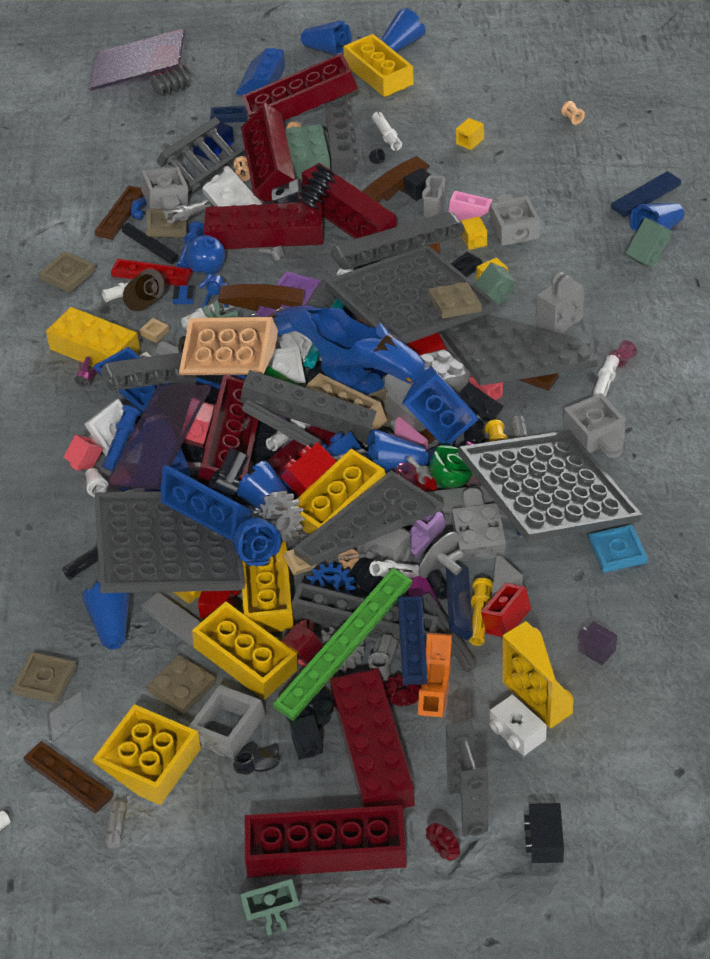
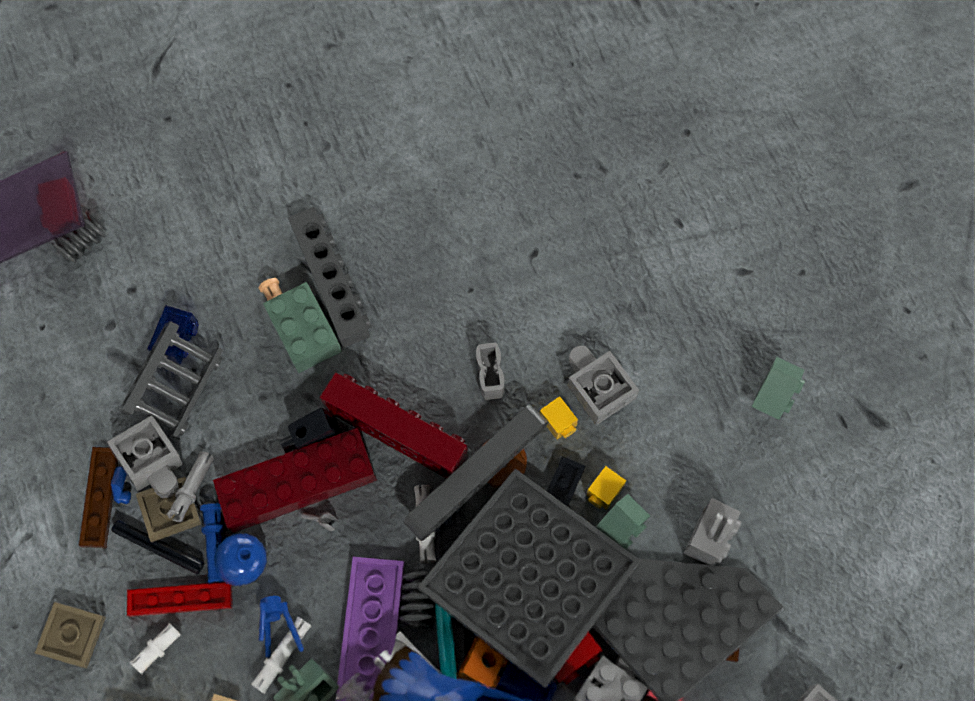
camera: 20 degrees left, 25 degrees up
(144, 290) = (186, 647): dark brown piece -> none
(183, 294) = (235, 629): tile -> none
(229, 114) = (176, 278): dark blue tile -> none
(229, 190) = (229, 427): white wing -> none
(239, 169) = (229, 377): light nougat bush -> none
(255, 295) = (341, 623): reddish brown slope -> none
(262, 70) = (192, 193): blue slope -> none
(267, 151) = (257, 354): dark red brick -> none
(304, 88) = (259, 234): dark red brick -> none
(316, 187) = (354, 432): black piece -> none
(327, 37) = (255, 108): blue cone -> none
(377, 156) = (390, 306): black hinge -> none
(378, 65) = (337, 143): yellow brick -> none
(389, 134) = (392, 263): white pin -> none
(393, 180) = (427, 352): reddish brown slope -> none
(403, 30) = (344, 76): blue cone -> none
(415, 183) = (461, 346): black brick -> none
(454, 300) = (591, 578): dark tan plate -> none
(468, 205) = (540, 381): bright pink slope -> none
(469, 133) = (491, 237): yellow brick -> none
(572, 113) = (602, 165): light nougat bush -> none
(606, 375) = (799, 635): white pin -> none
(624, 352) = (805, 581): clear pink bush -> none
(646, 193) = (734, 285): dark blue tile -> none
(663, 213) = (769, 338): blue cone -> none

